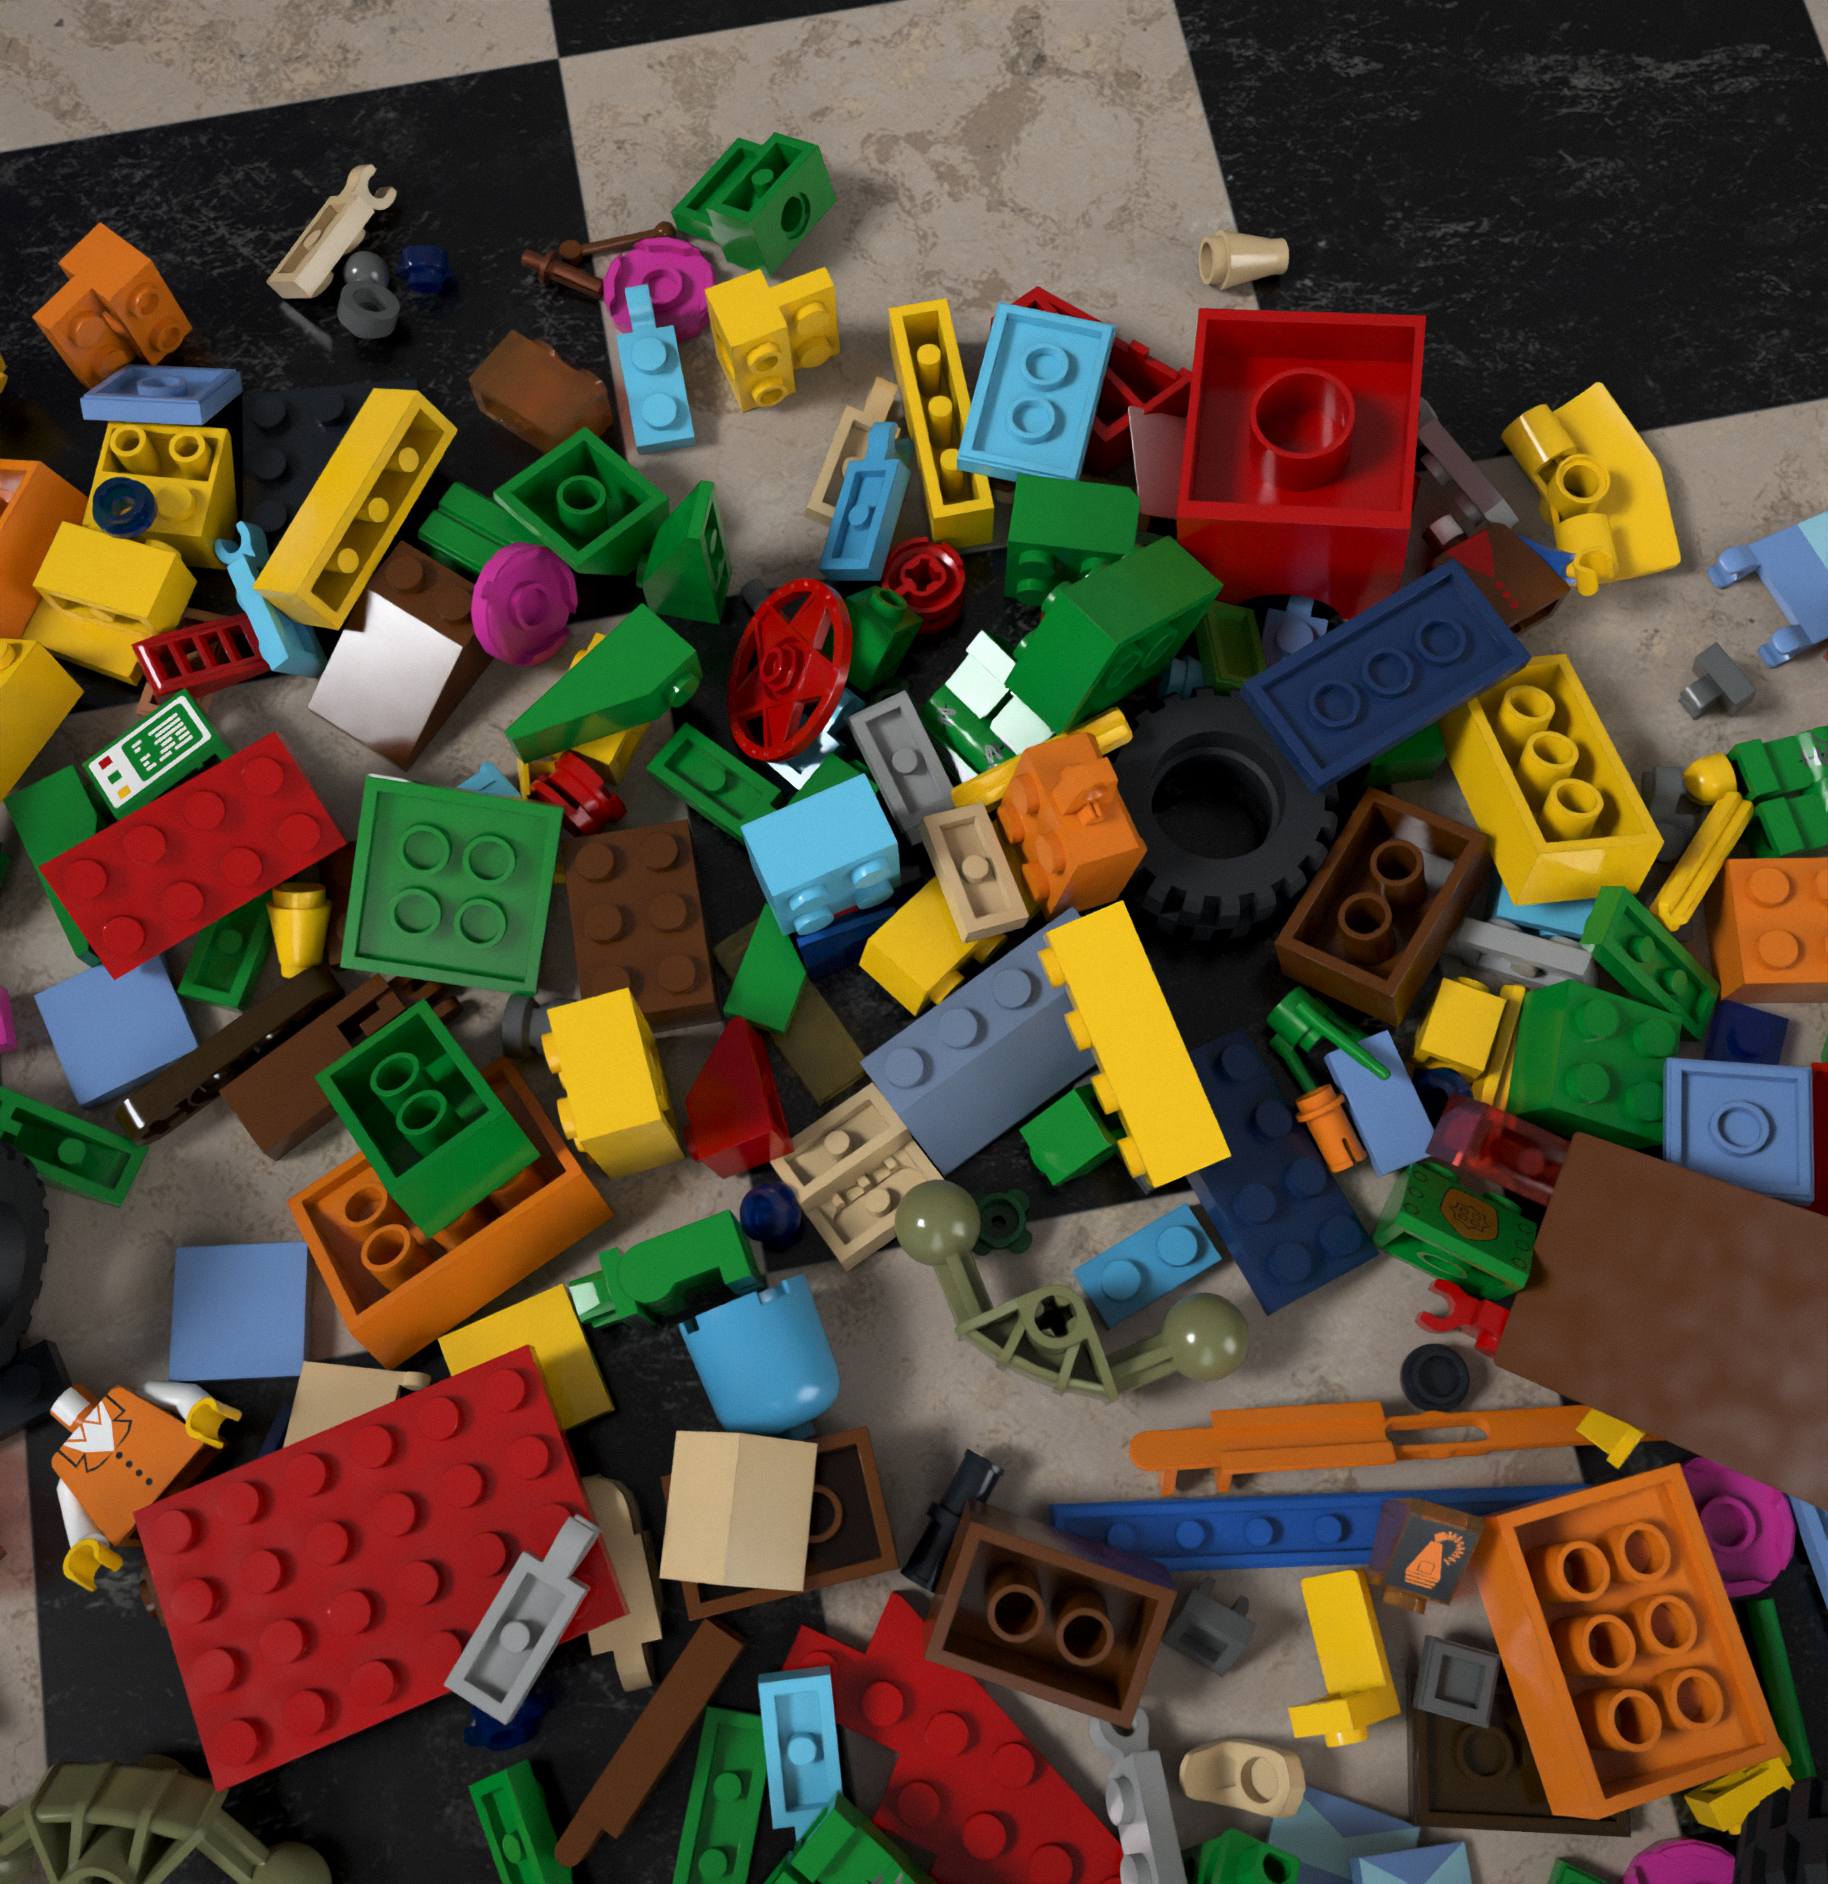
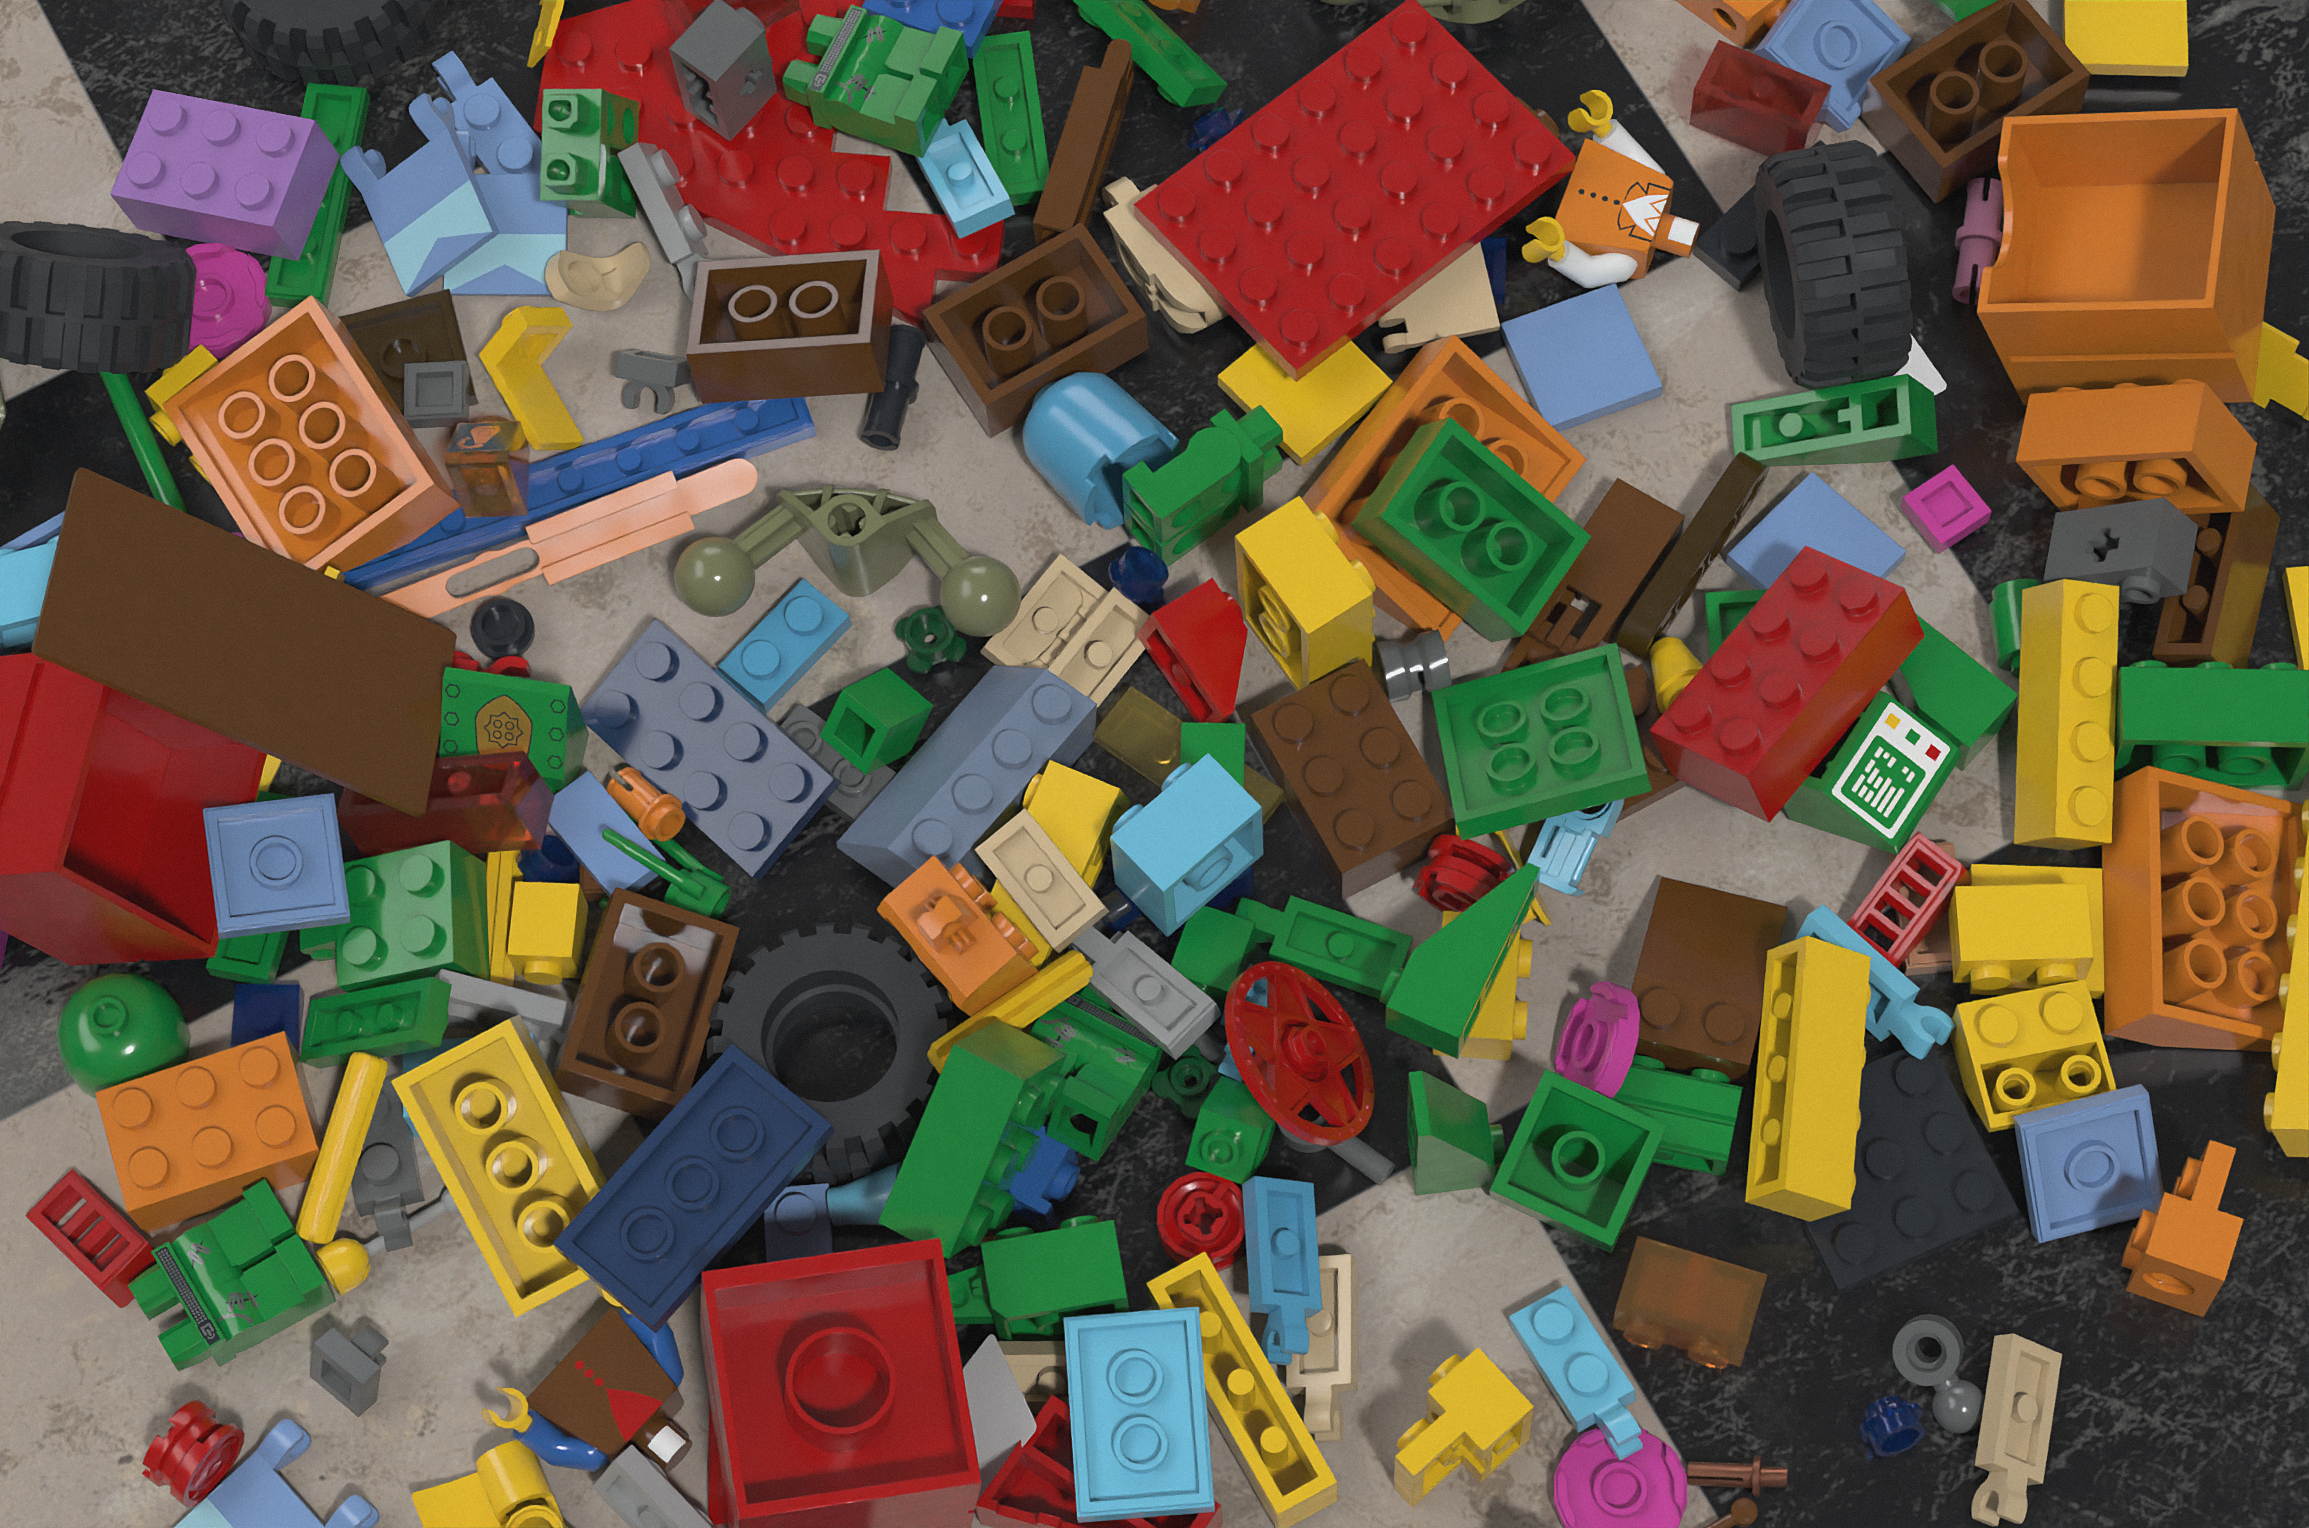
camera: 165 degrees right, 5 degrees down
(114, 497) = (2037, 968): plate -> none
(524, 1624) = (1205, 161): light grey plate -> none
(739, 1510) = (1067, 301): tan slope -> none
(1135, 1046) = (844, 763): yellow brick -> none
(1229, 646) = (849, 1209): bright green tile -> none

